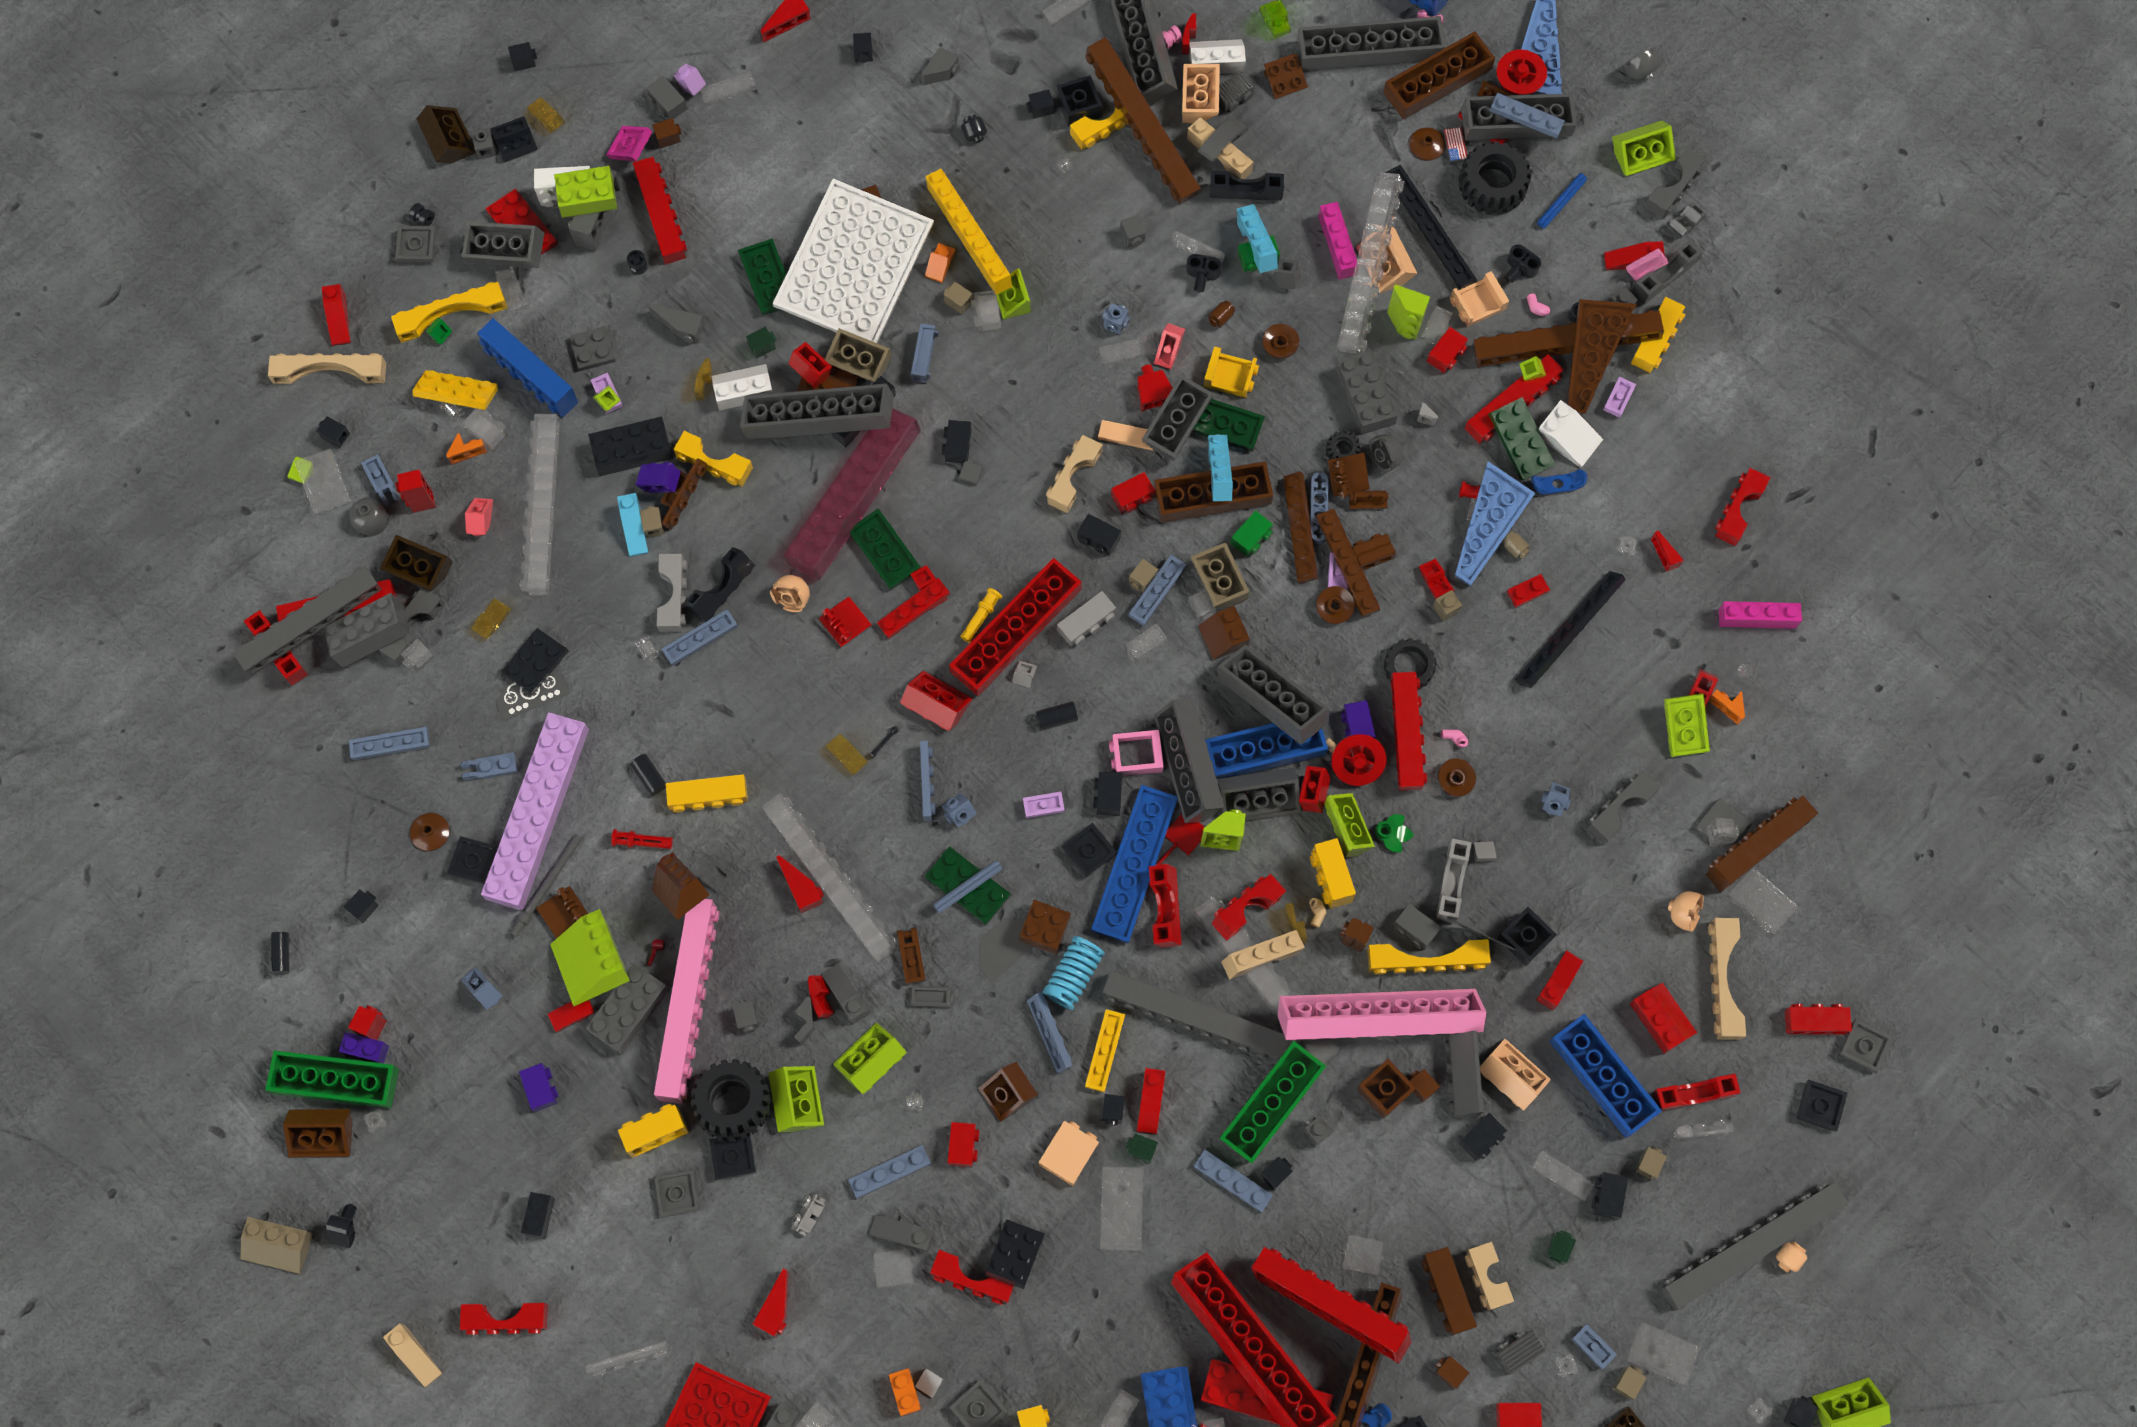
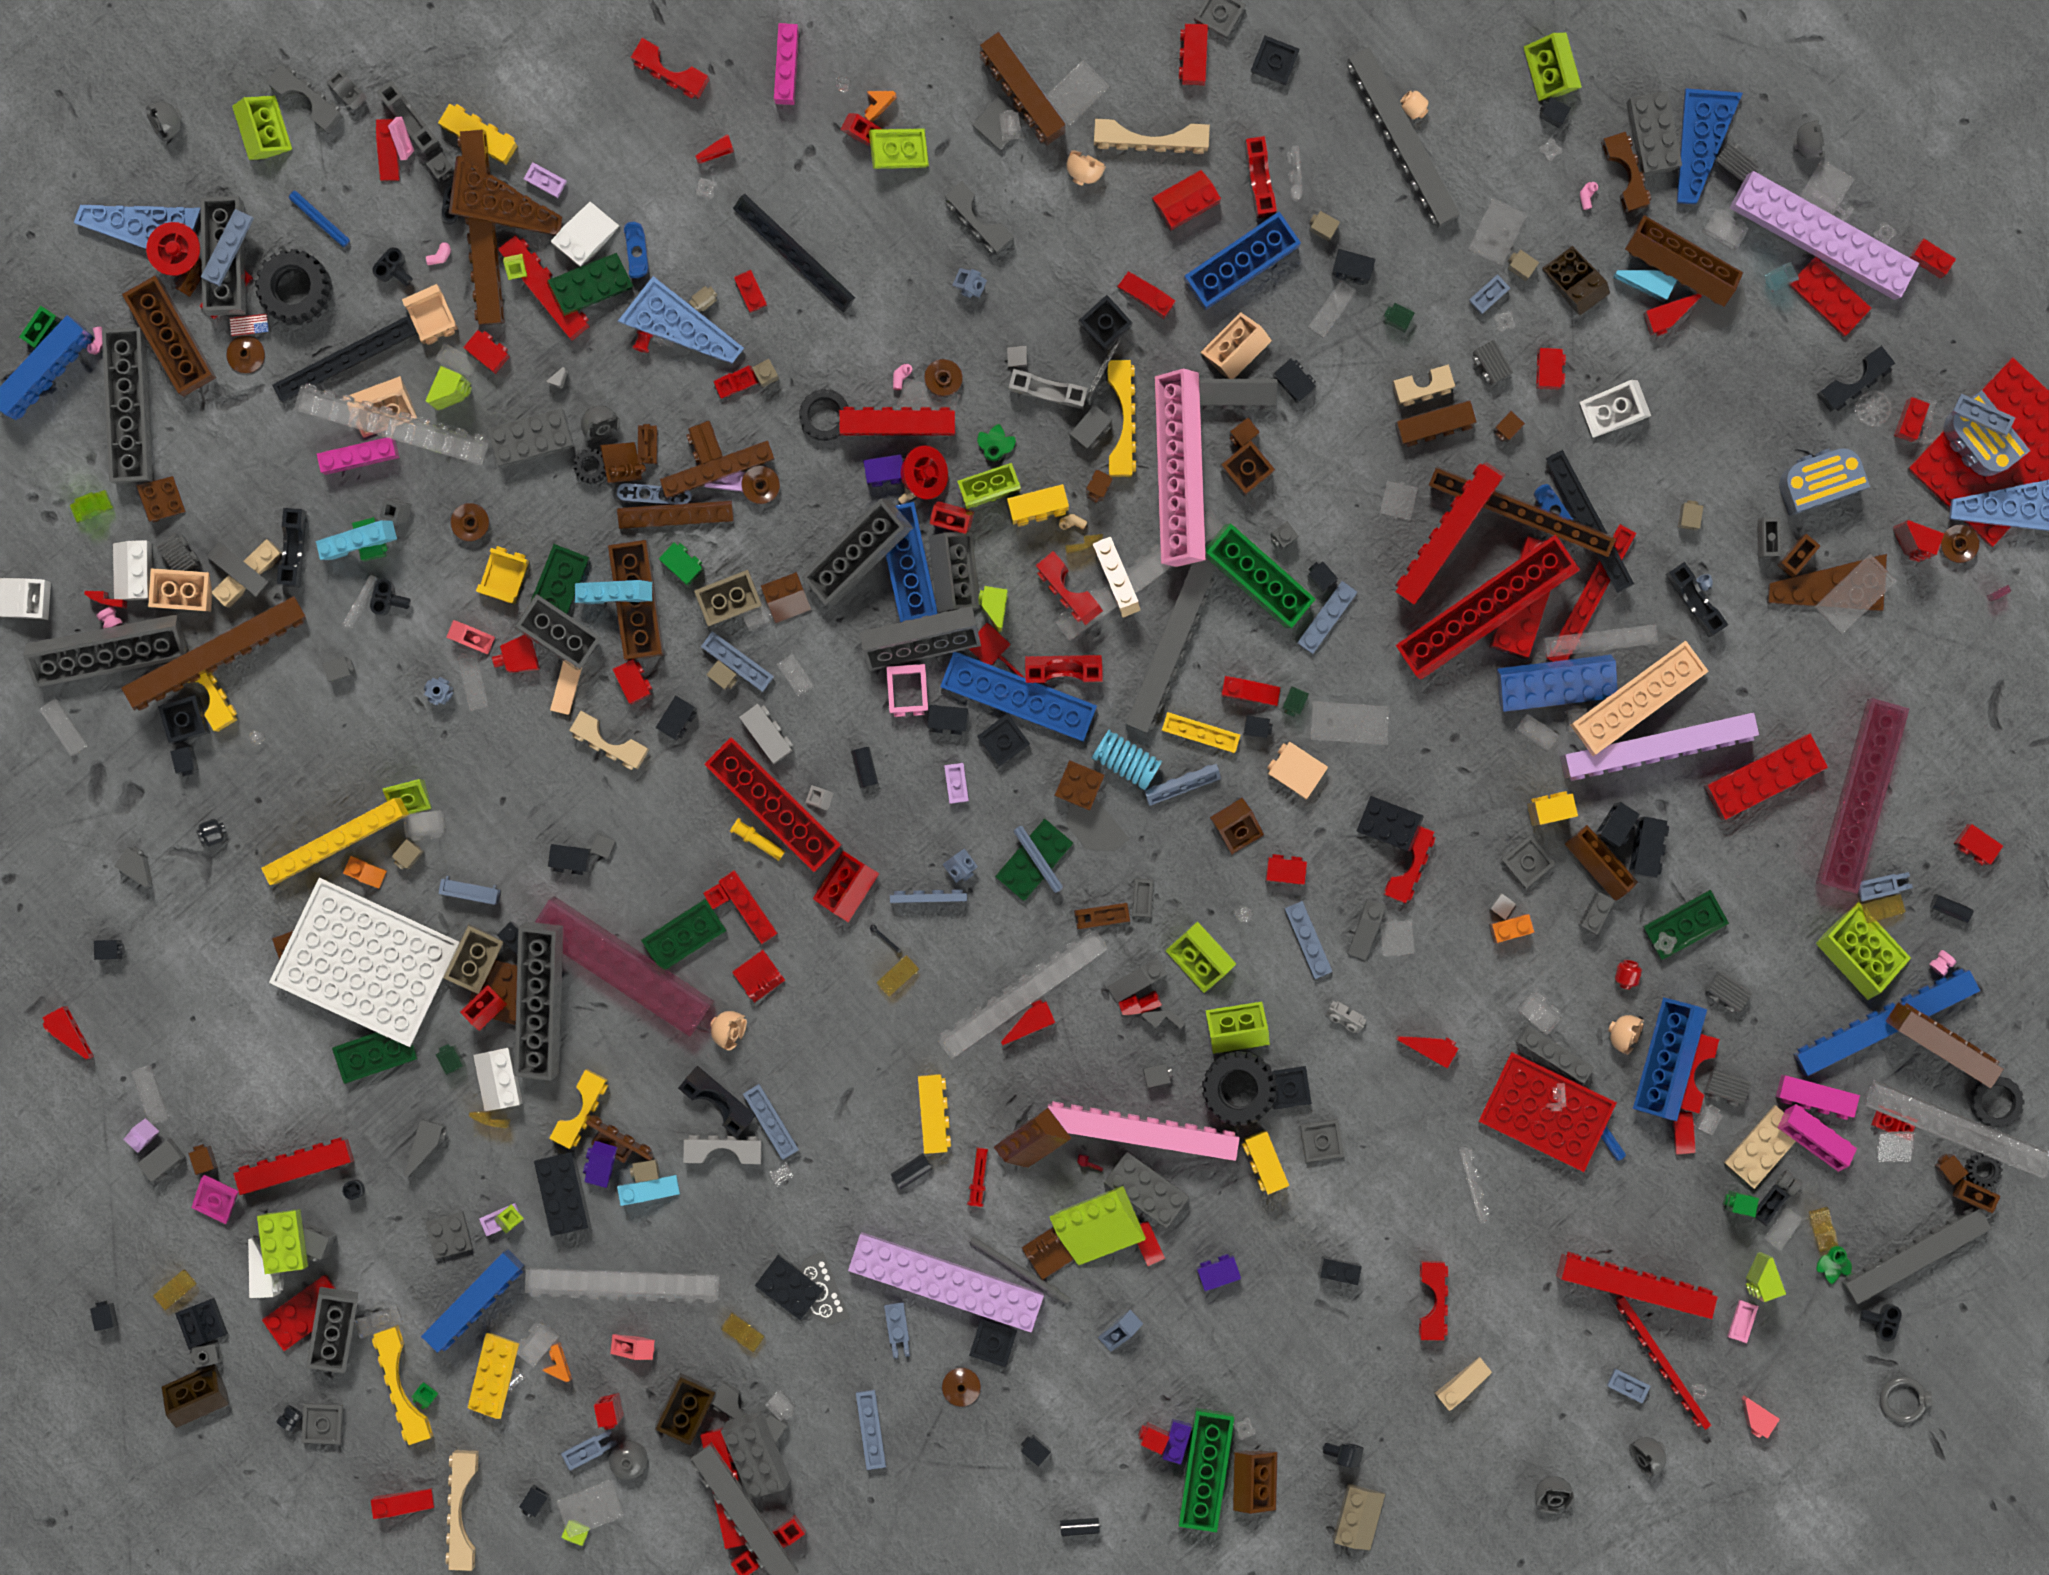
camera: 85 degrees left, 15 degrees up
(1221, 314) = (437, 582): reddish brown brick -> none

